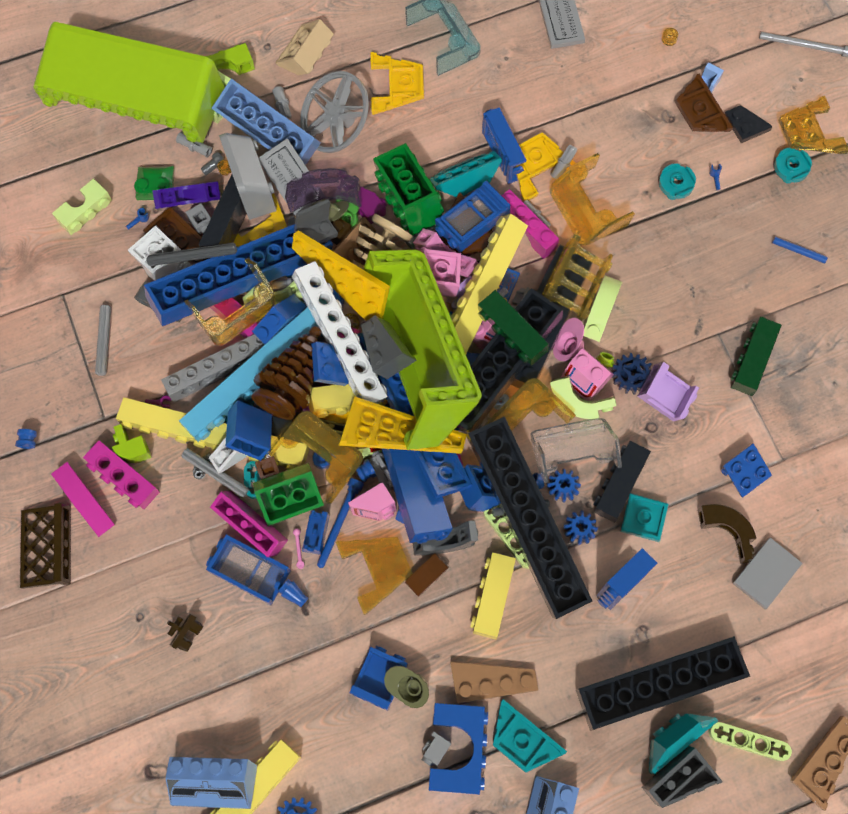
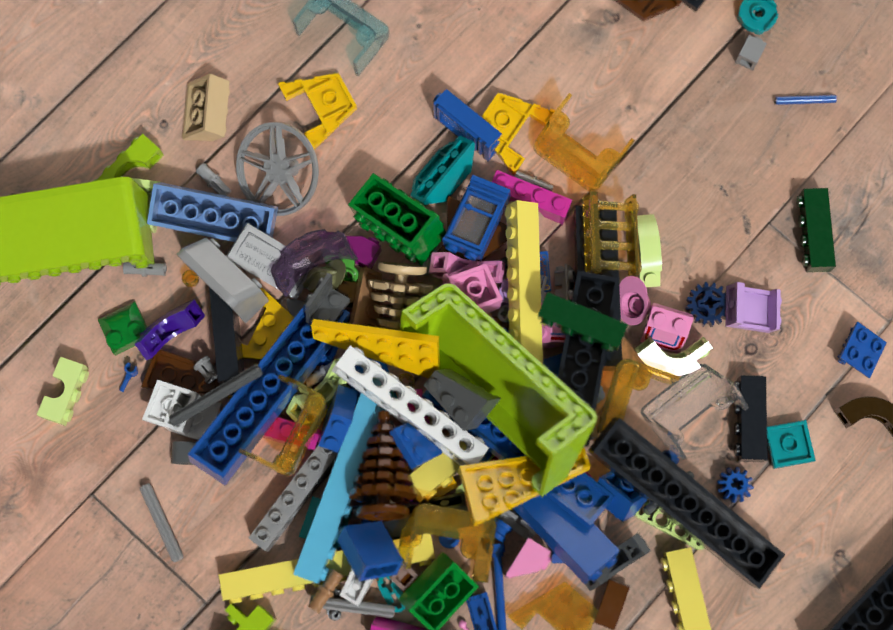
camera: 25 degrees left, 5 degrees up
(159, 402) = (253, 560): magenta hand -> none
(197, 233) = (206, 368): none -> light grey bush
(198, 218) = (191, 342): light grey brick -> none
(198, 448) = (325, 591): none -> medium nougat pin
(212, 165) = (176, 280): dark grey arm -> none
(556, 482) = (703, 457): blue gear -> none
(564, 161) = (535, 115): light grey axle -> none
(605, 359) = (676, 302): lime plate -> none
(626, 579) = (809, 520): blue arch -> none
(673, 190) = (651, 93): teal plate -> none
(715, 173) = (688, 57): blue hand -> none
(770, 192) = (751, 52): none -> light grey brick

